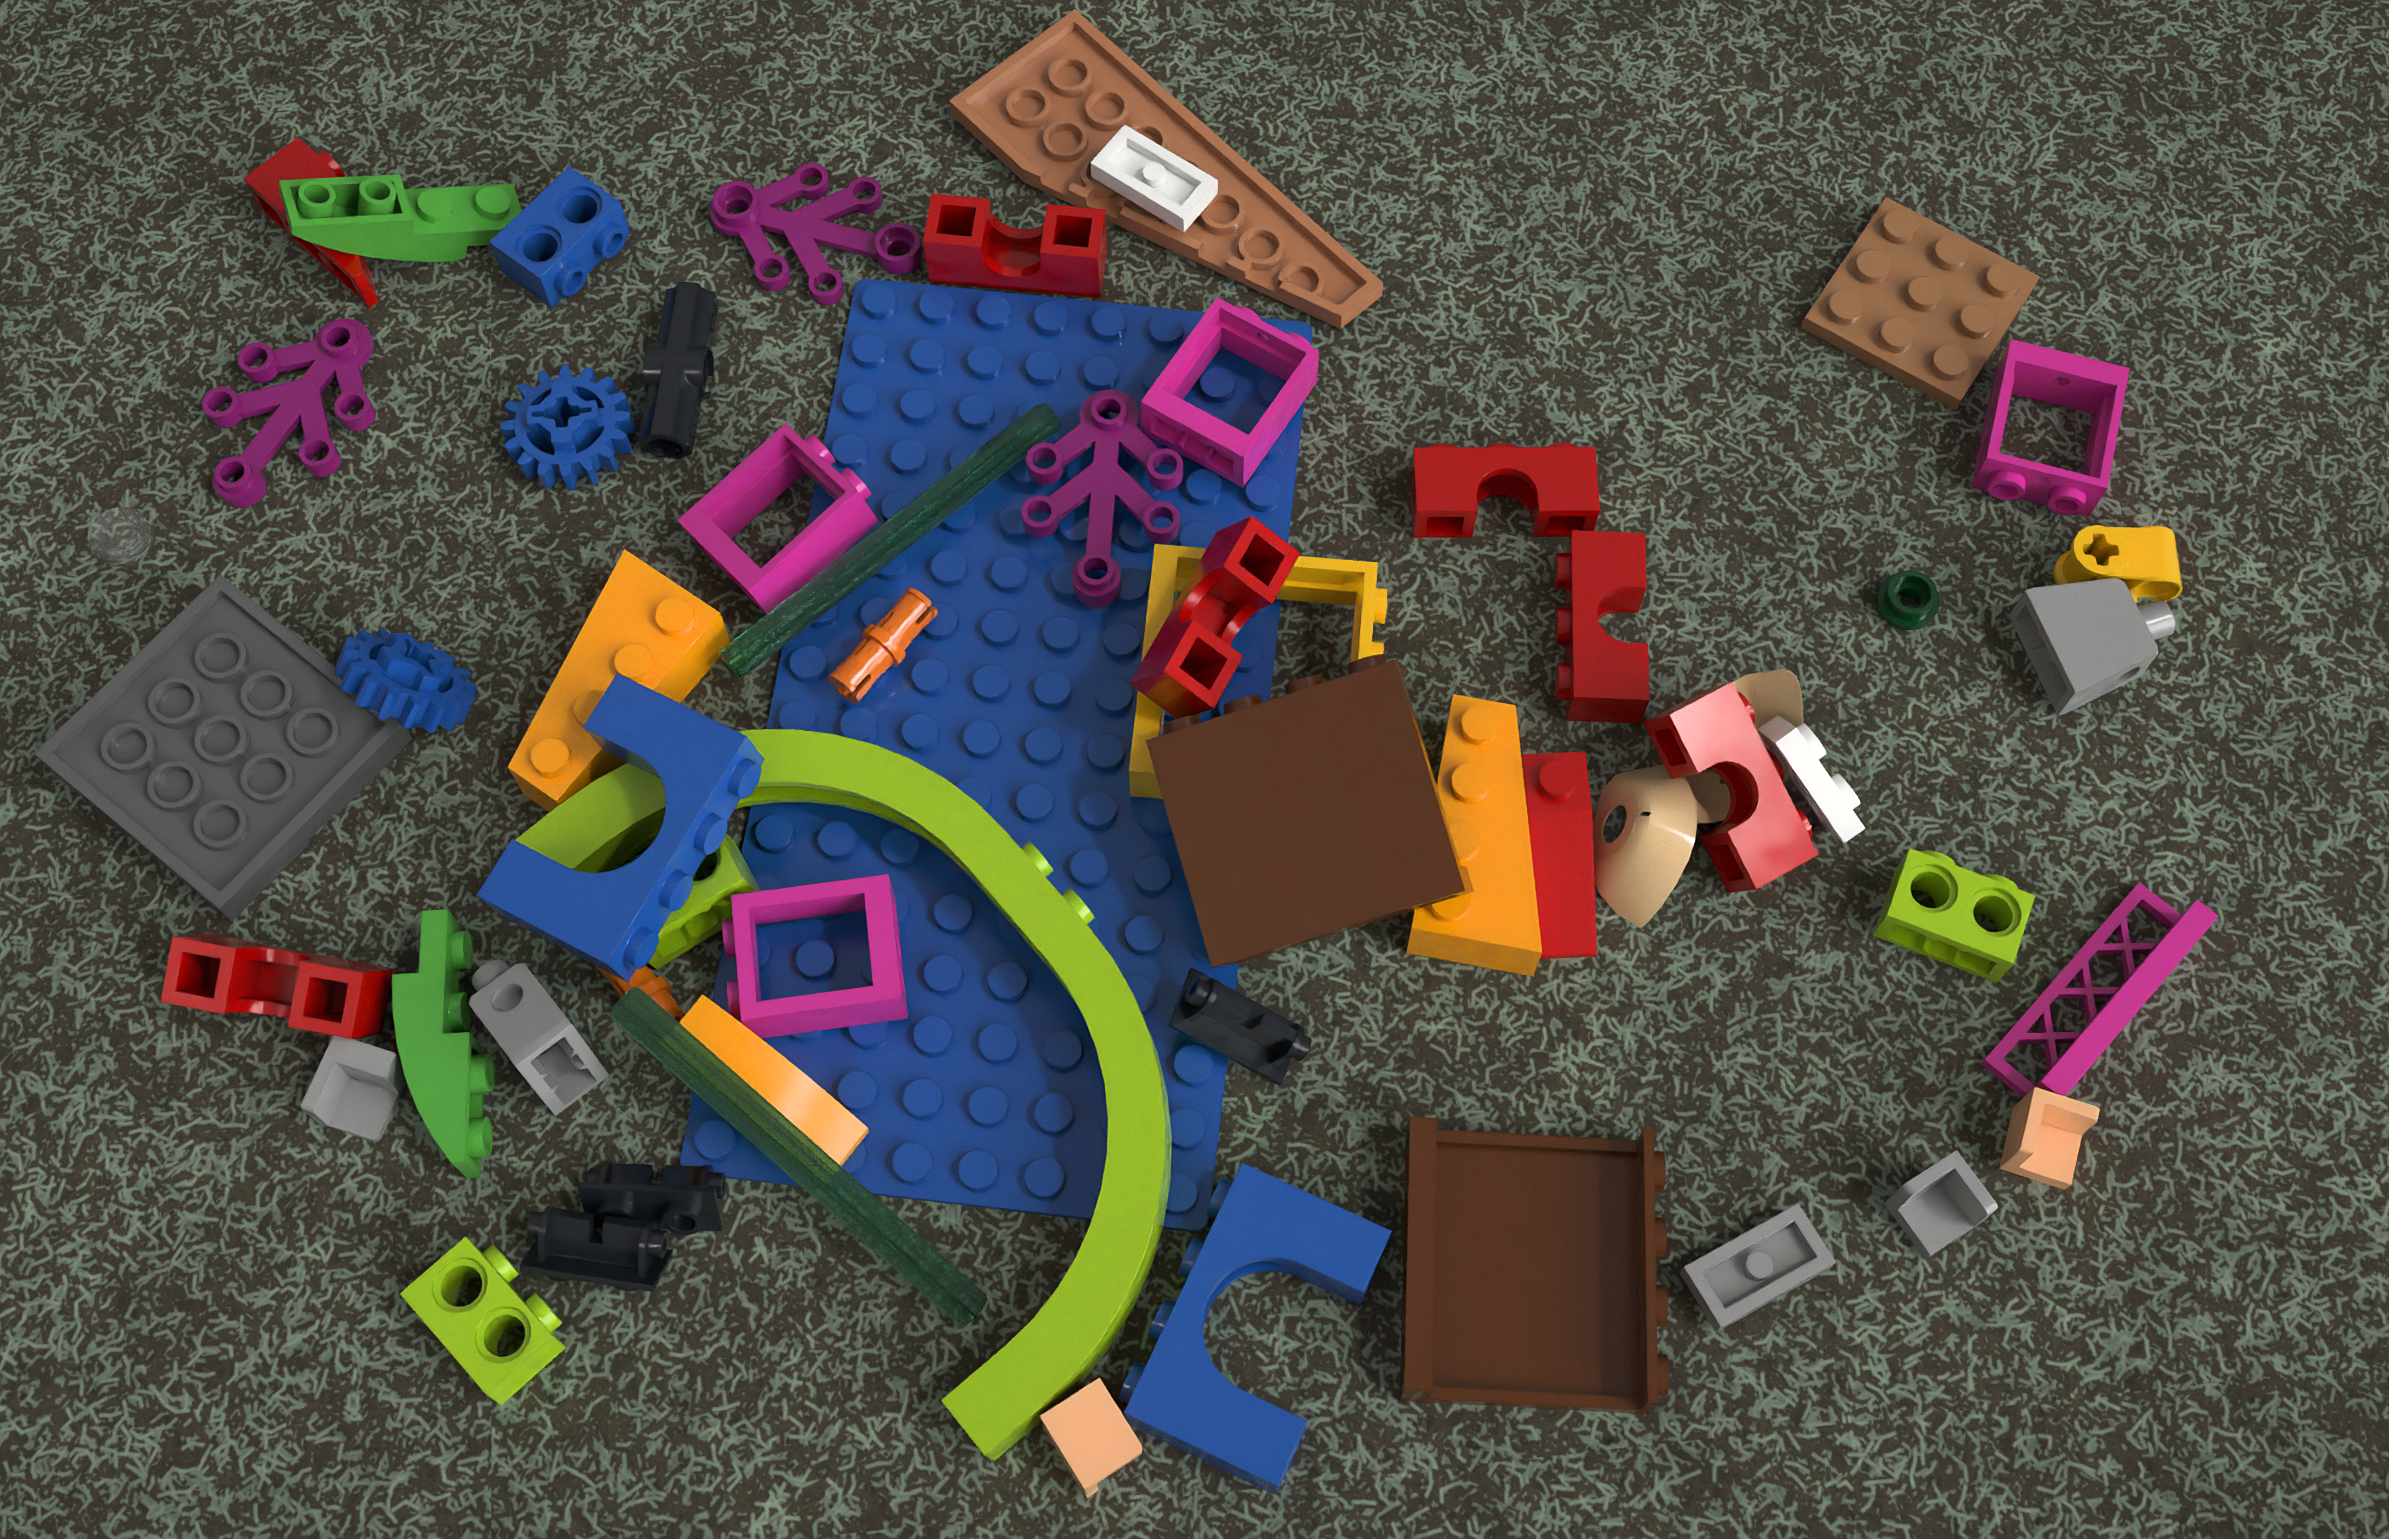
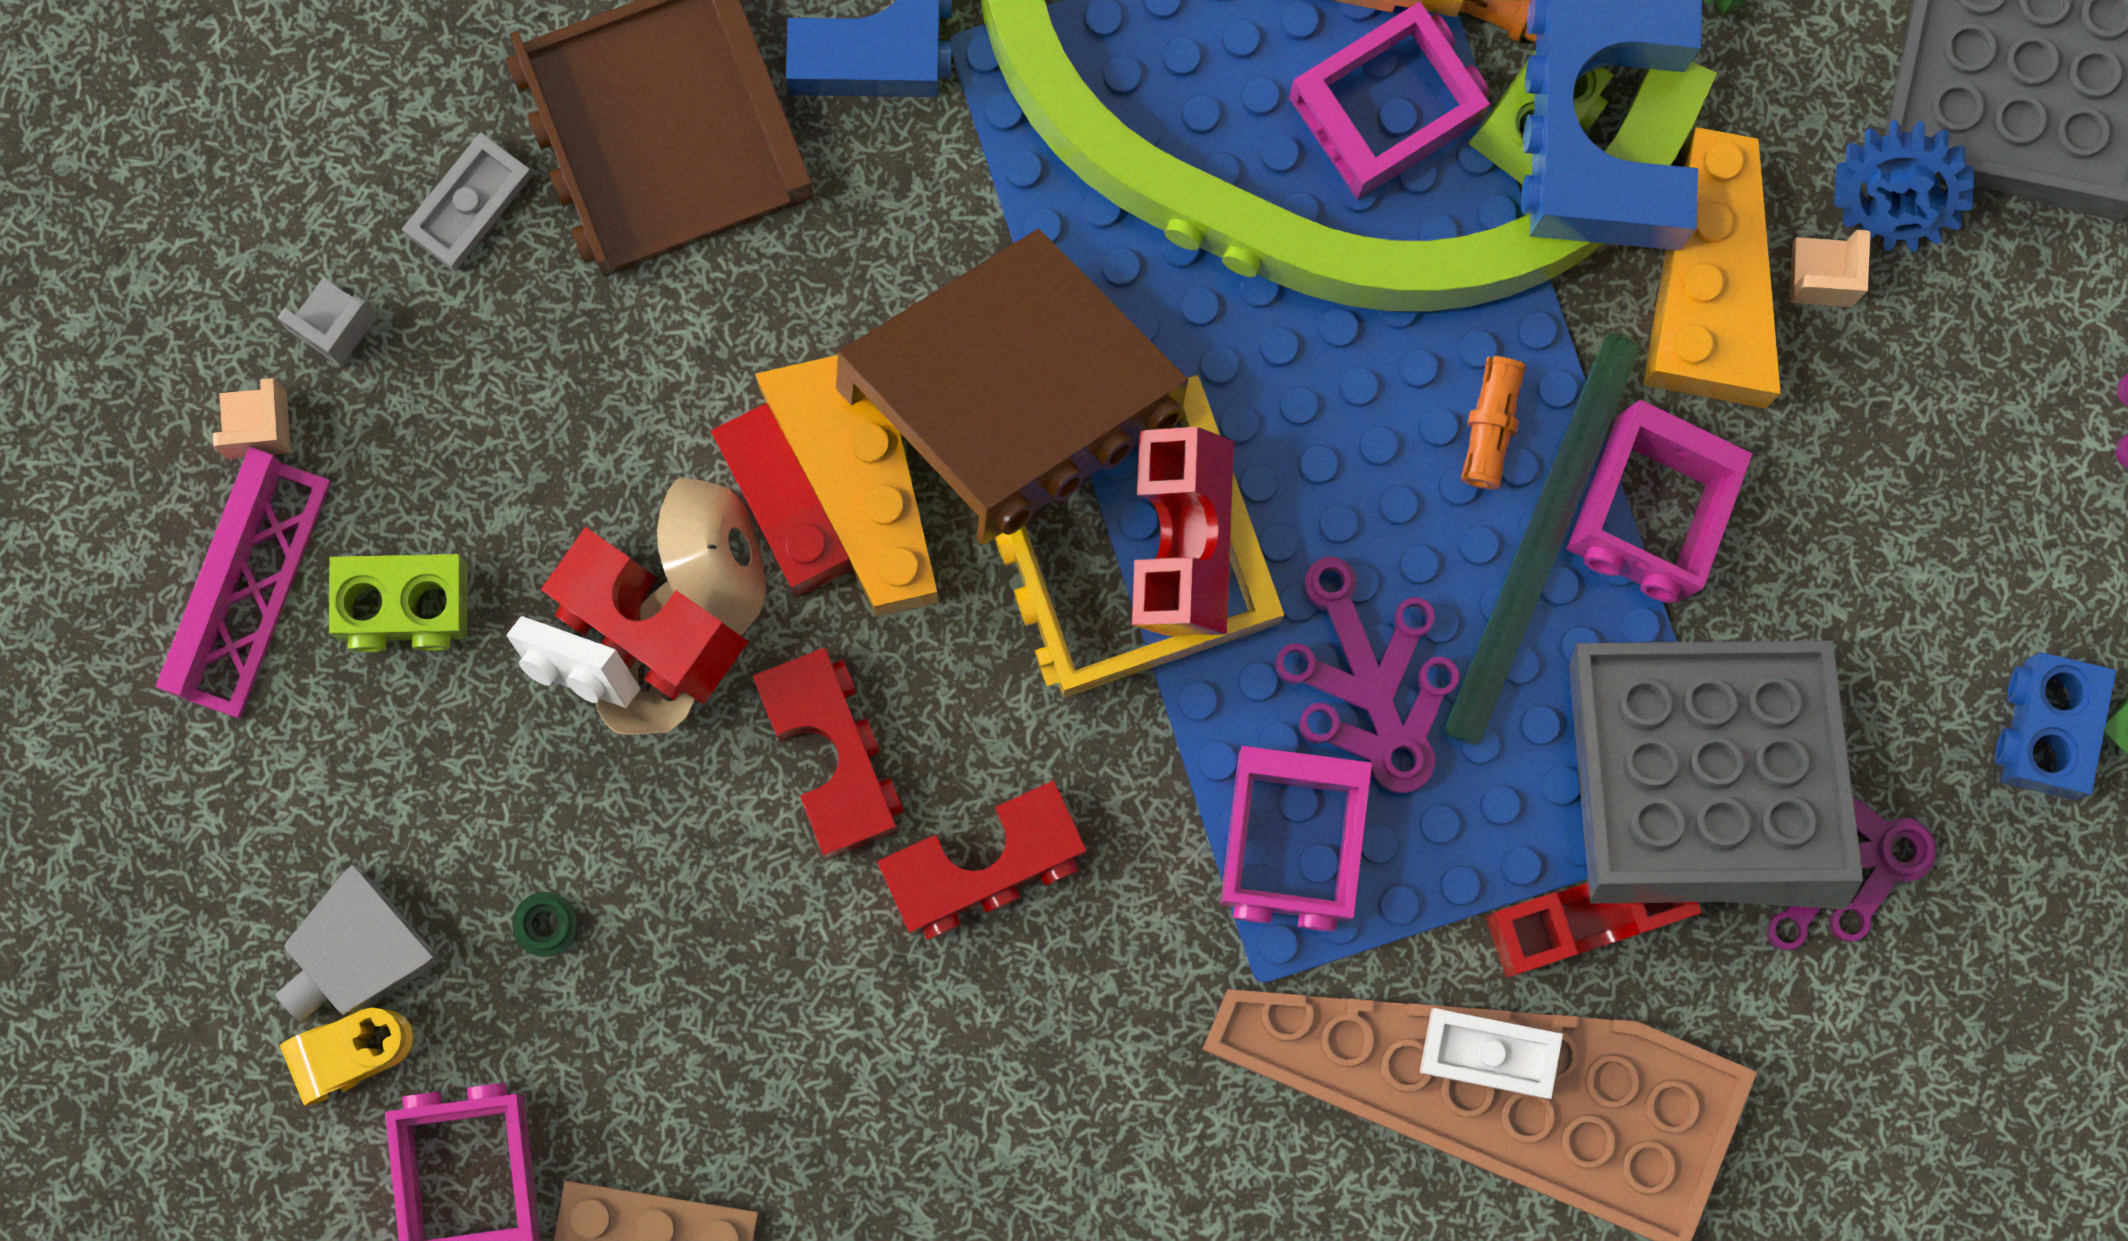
camera: 150 degrees right, 15 degrees up
(512, 652) = (1830, 270): none -> light nougat panel
(573, 419) = (1933, 543): blue gear -> none
(678, 371) = (1858, 631): black piece -> none
(861, 286) = (1714, 773): none -> dark grey piece
(1238, 1027) = (996, 210): black hinge -> none

